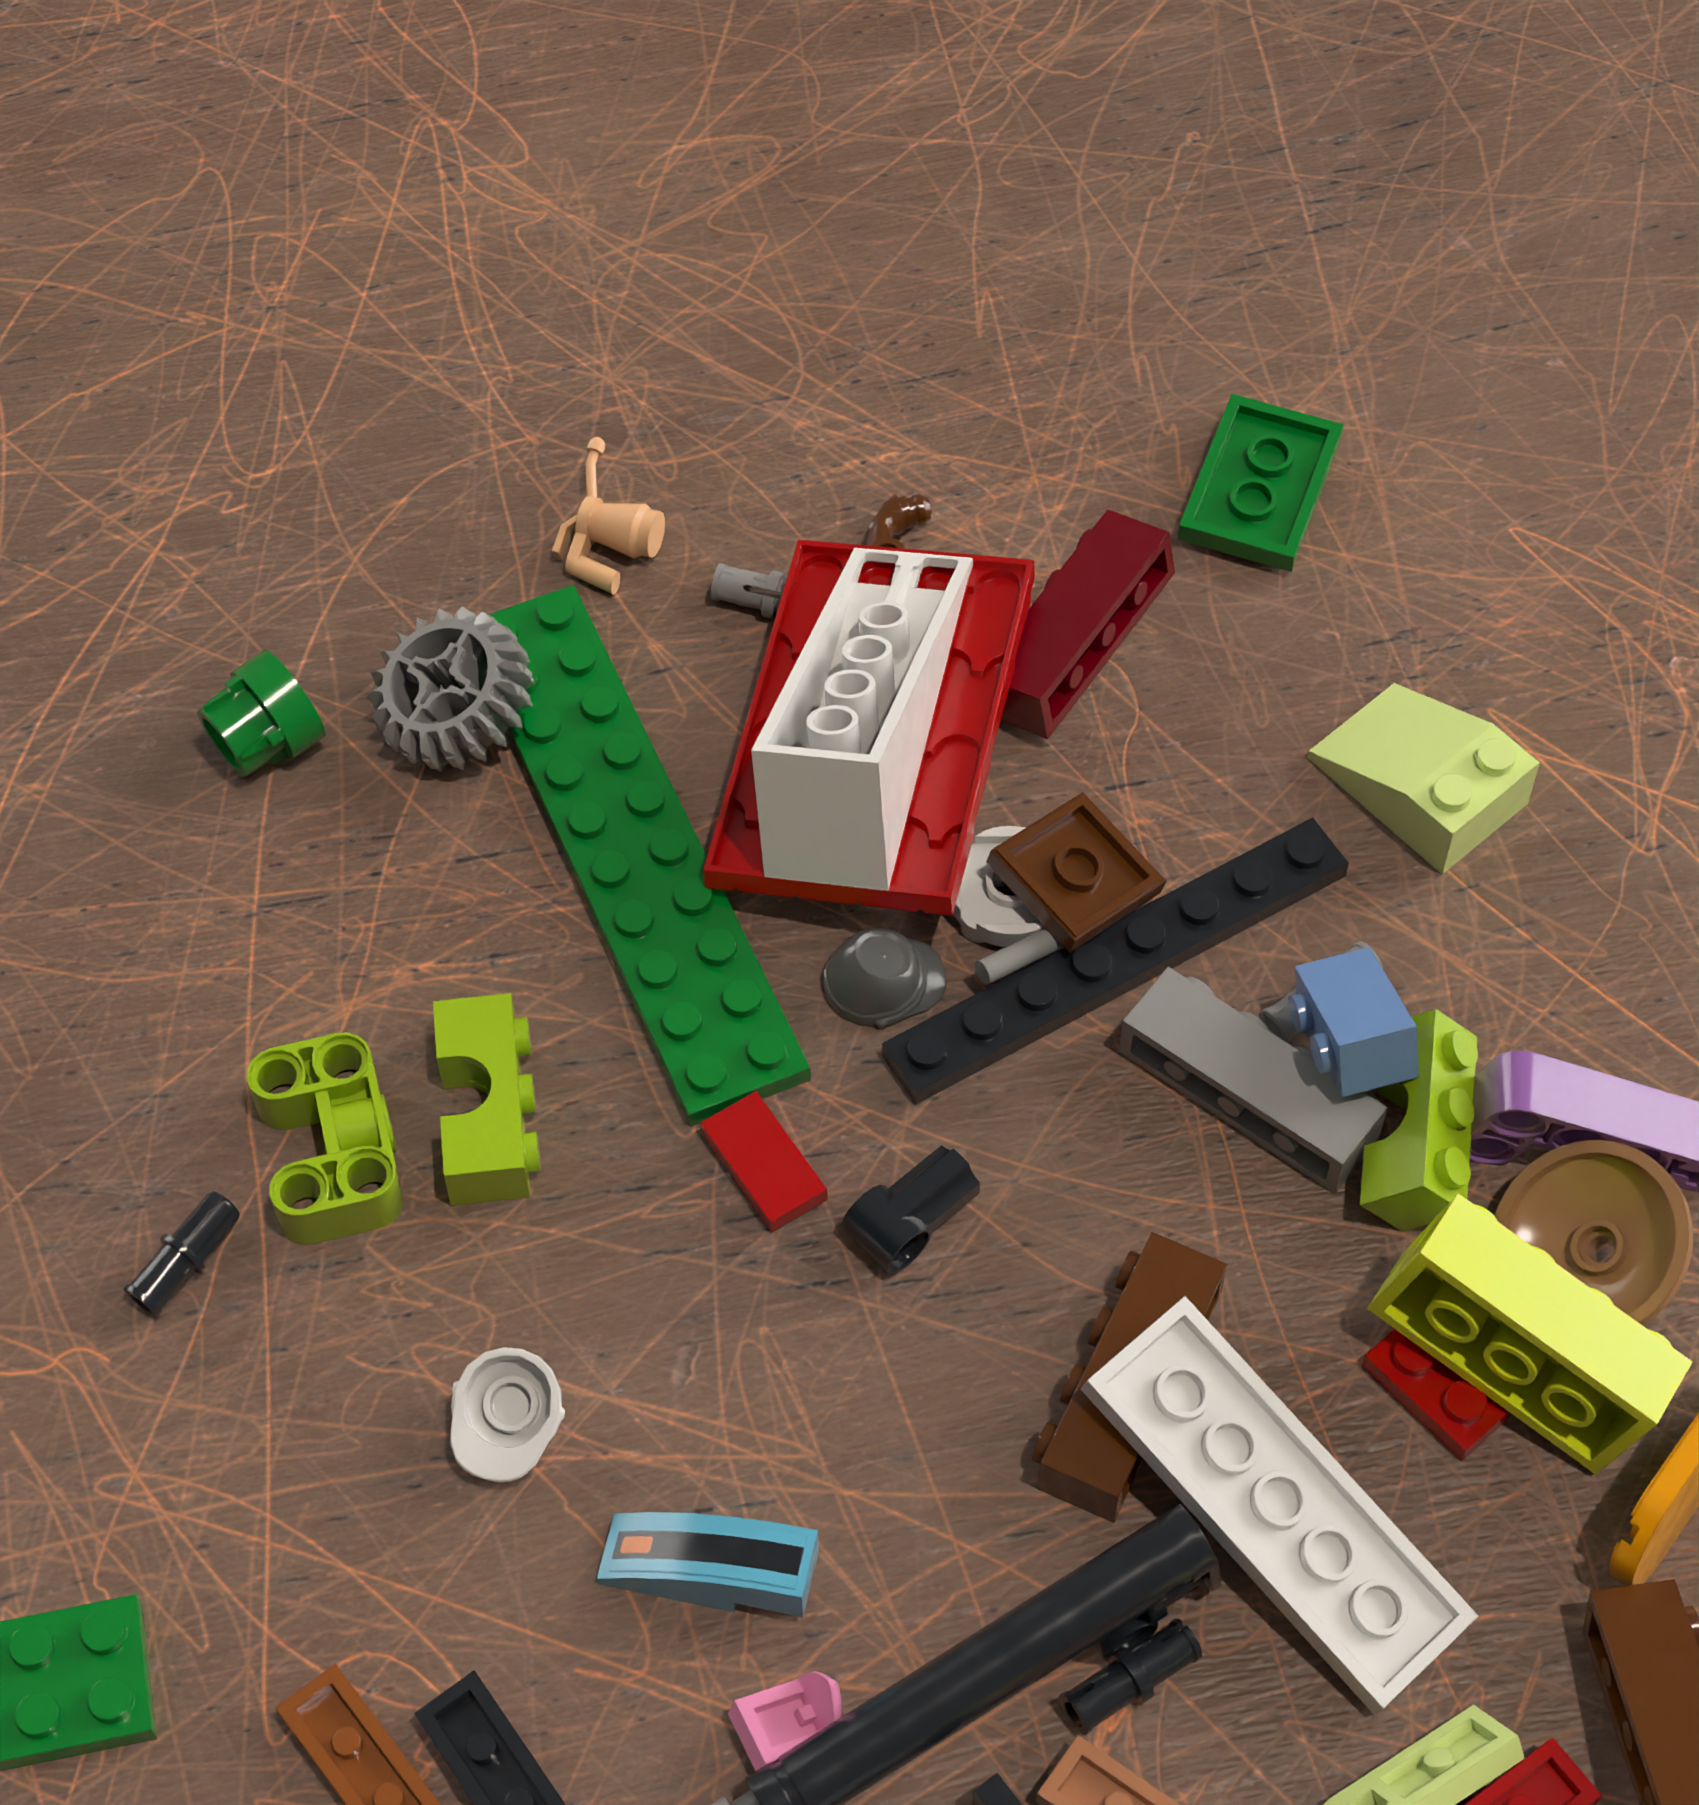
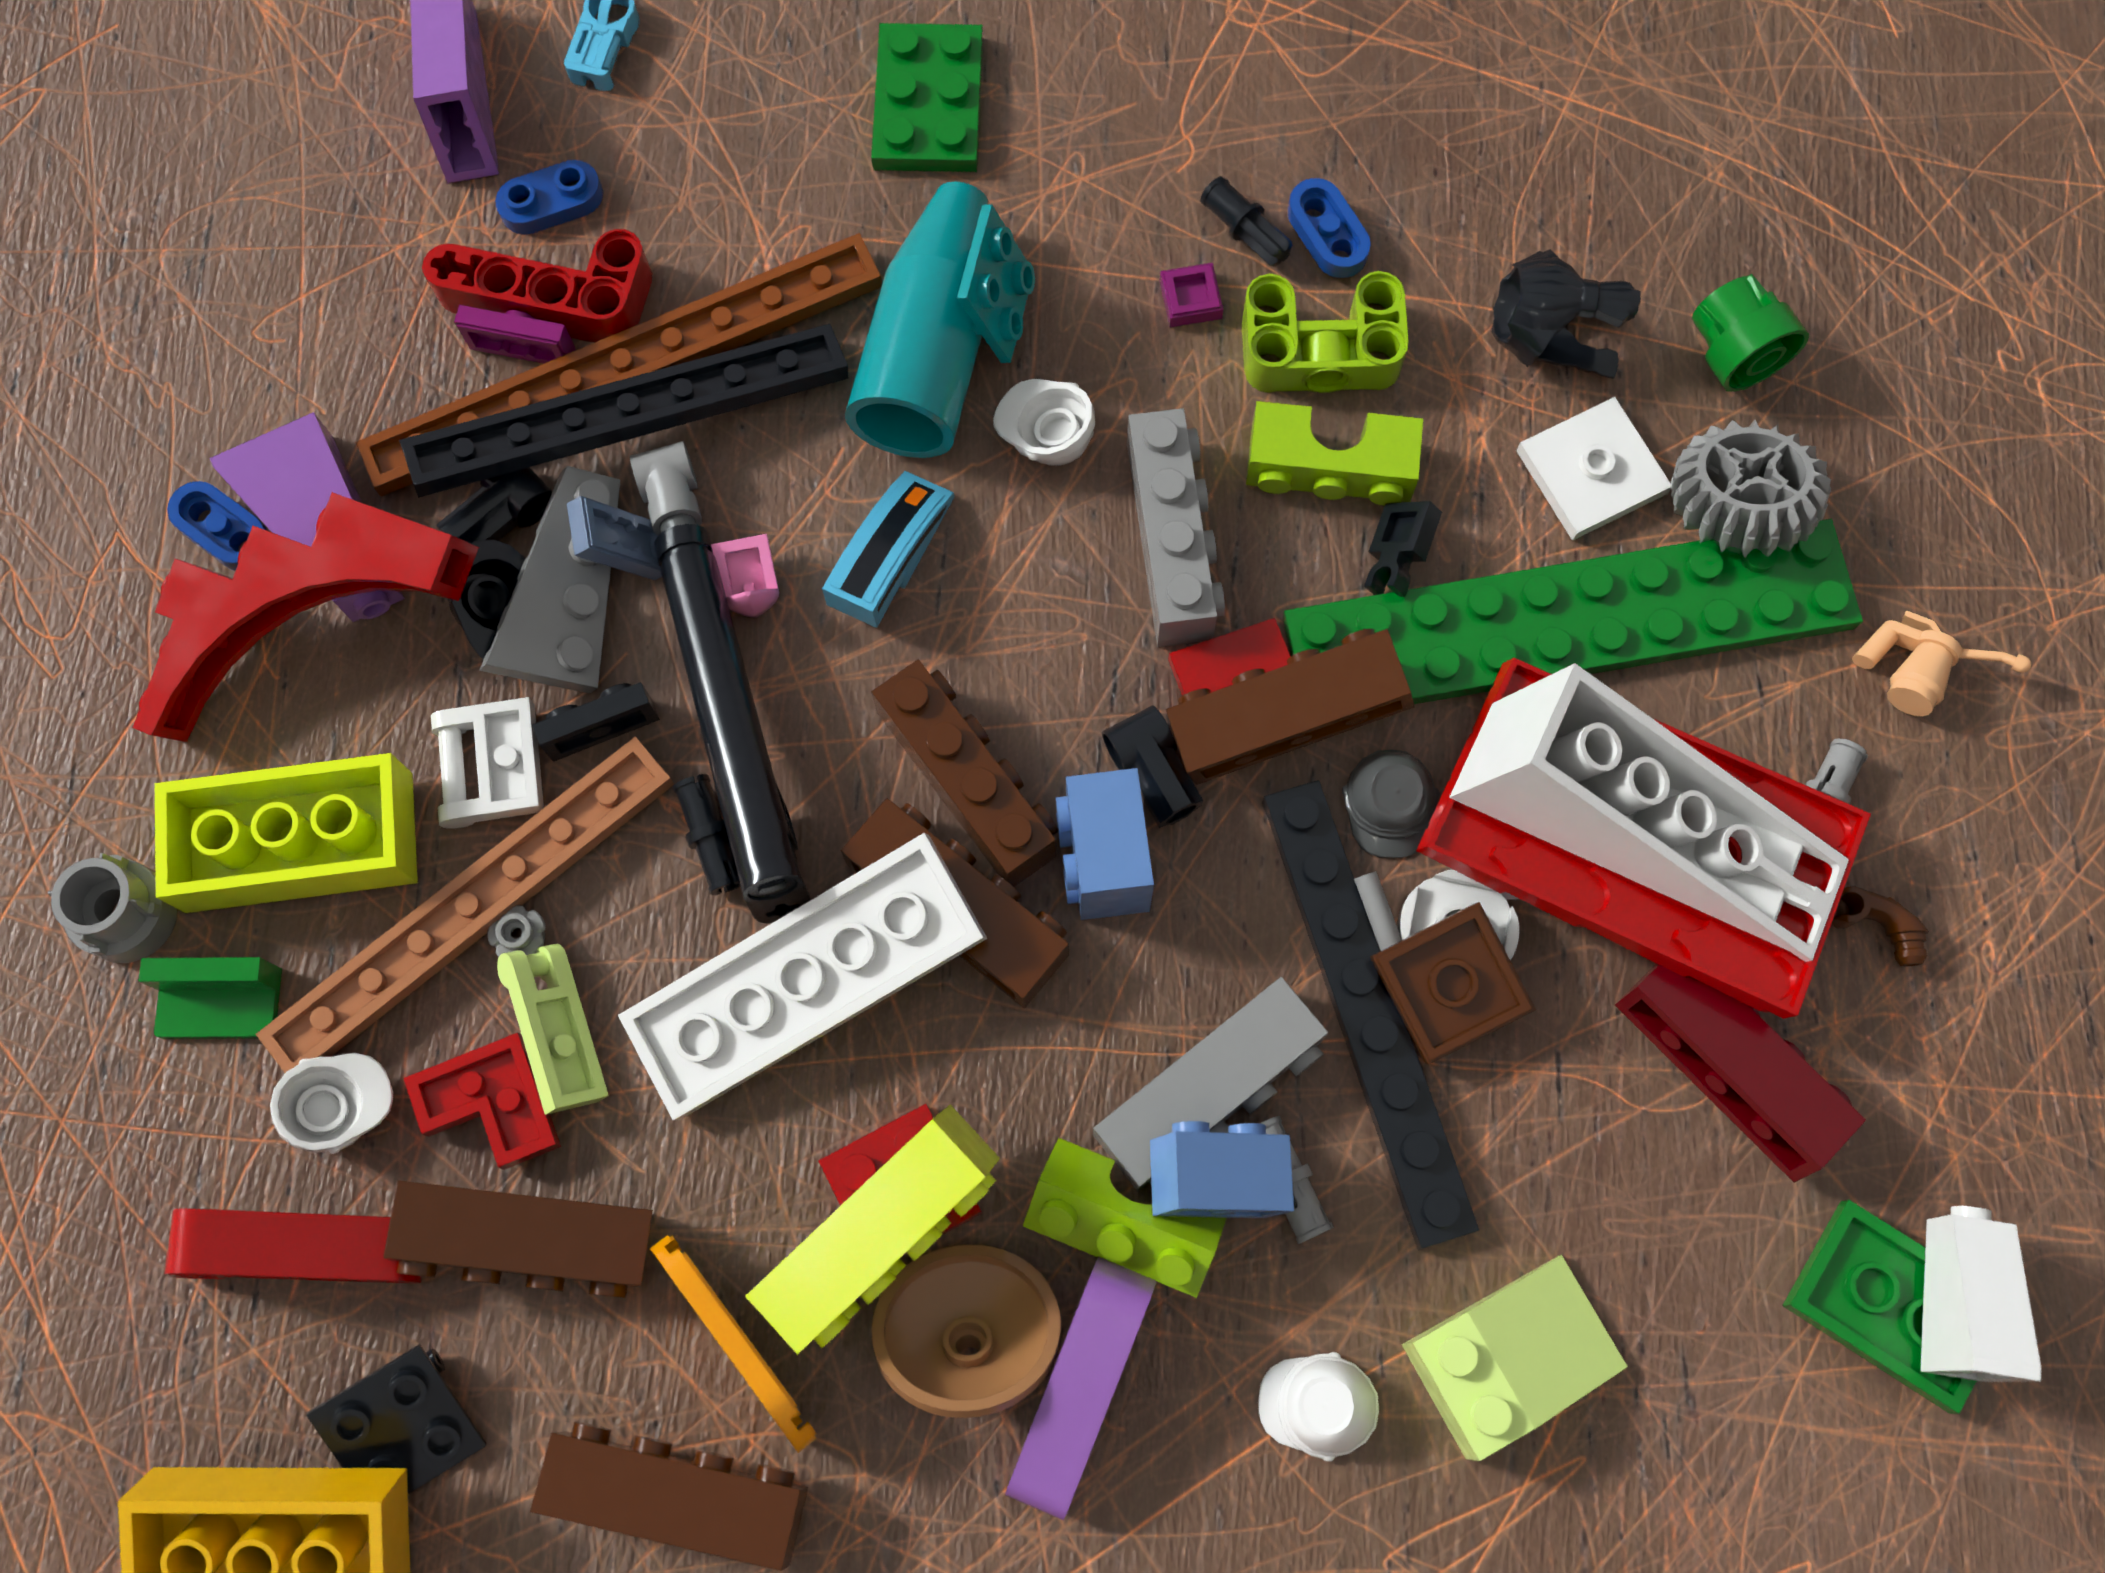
camera: 105 degrees right, 15 degrees up
(173, 1160) = (1332, 231): none -> blue plate
(264, 907) = (1543, 298): none -> black piece
(289, 1302) = (1191, 295): none -> magenta tile
(396, 1569) = (939, 296): none -> teal piece
(442, 849) = (1593, 468): none -> white plate
(573, 1010) = (1400, 539): none -> black plate
(617, 1245) = (1172, 528): none -> light grey brick
(815, 1070) = (1290, 705): none -> reddish brown brick
(978, 1399) = (965, 774): none -> reddish brown brick
(1029, 1216) = (1108, 843): none -> medium blue brick
(1251, 406) = (1976, 1301): none -> white slope
(1529, 929) = (1318, 1405): none -> white hat

